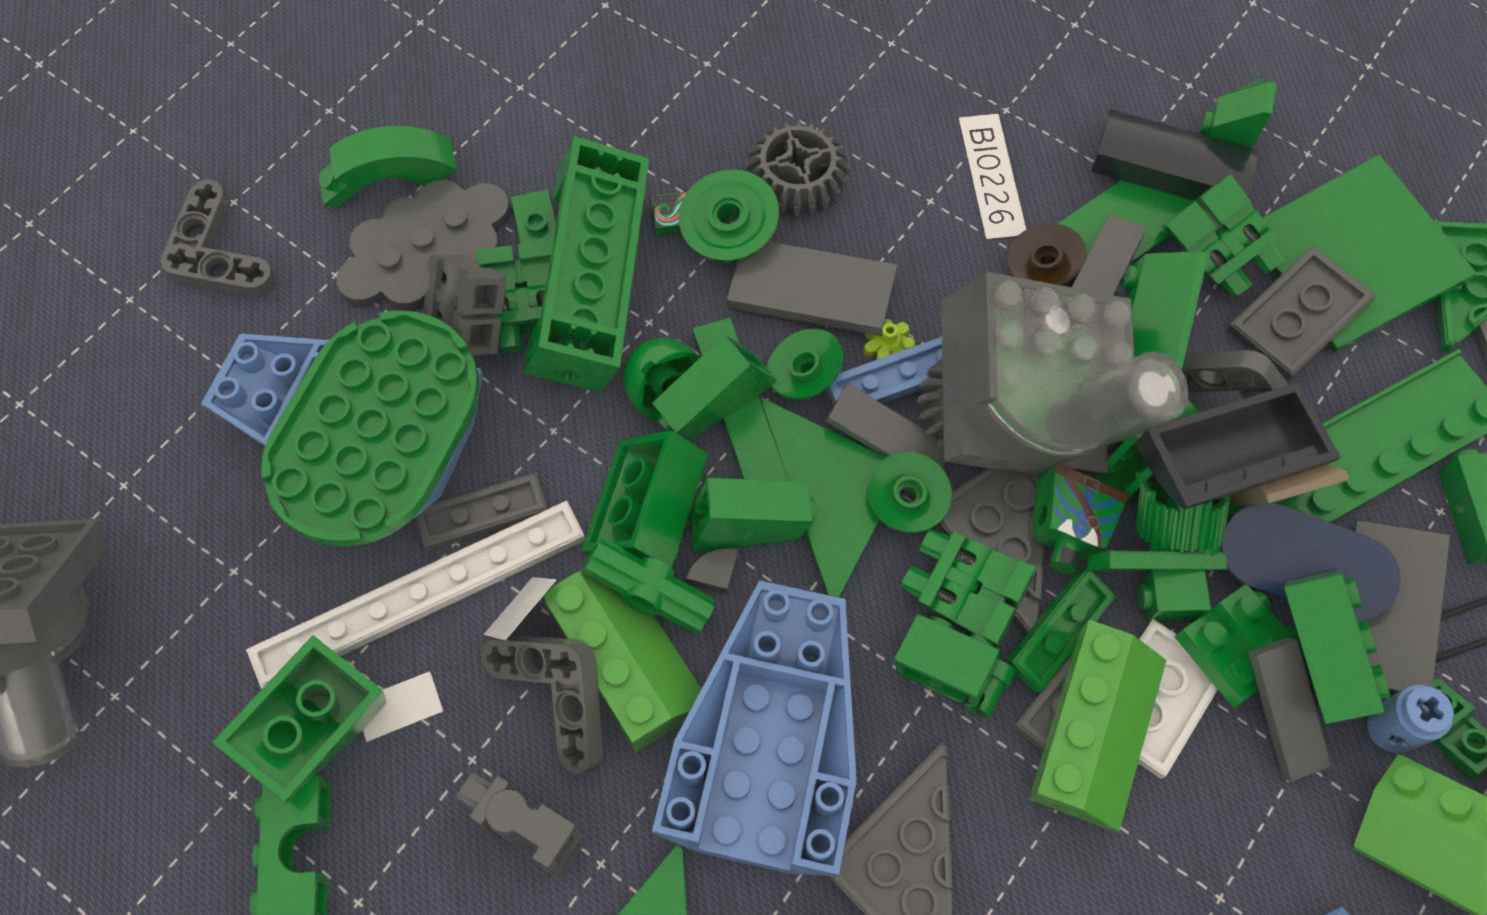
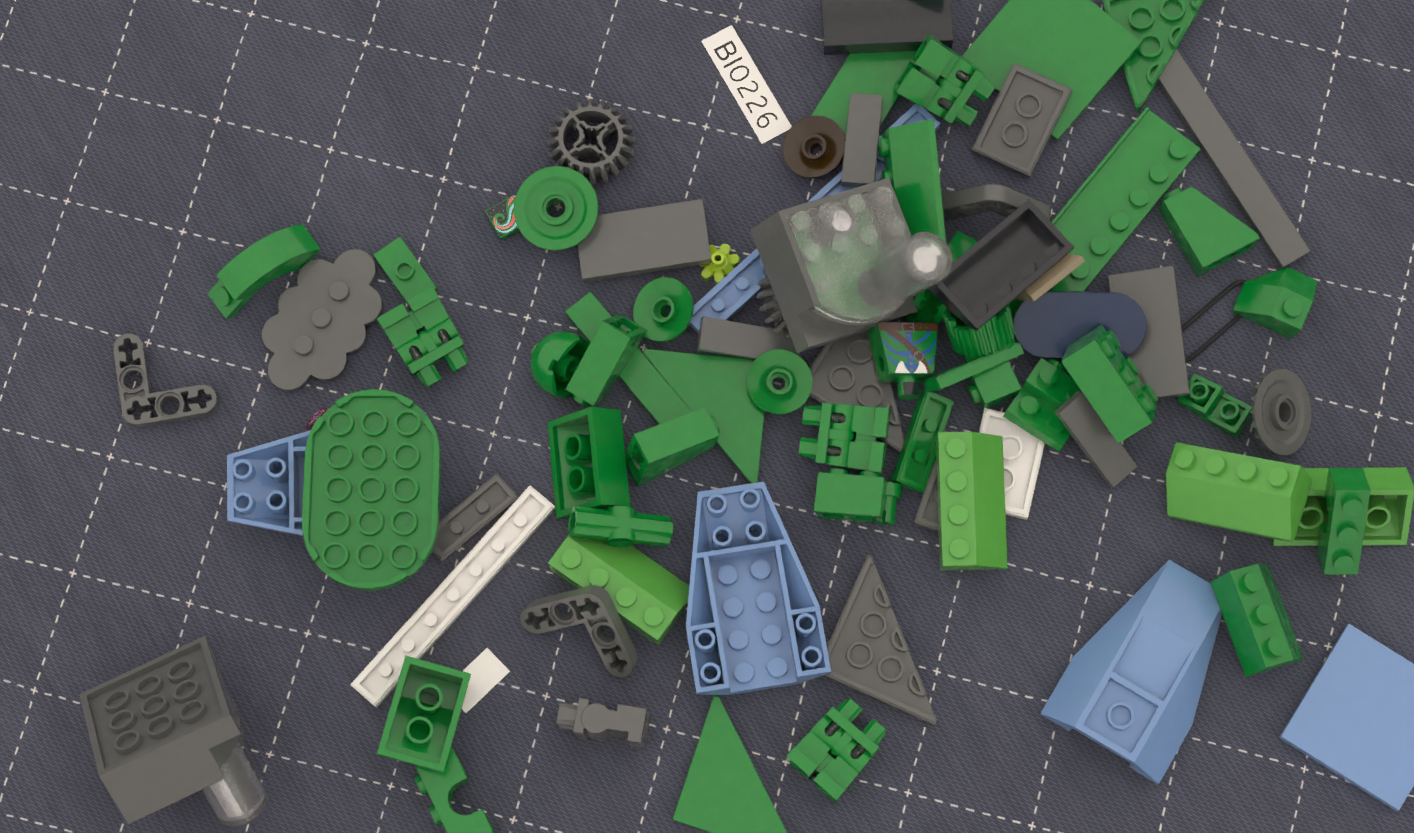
camera: 20 degrees left, 10 degrees up
(466, 300) = (387, 361): dark grey hips -> none
(519, 608) = (534, 578): white sticker -> none
(589, 266) = (471, 293): green plate -> none
(714, 570) = (659, 494): dark grey tile -> none
(1411, 722) = (1177, 415): medium blue piece -> none

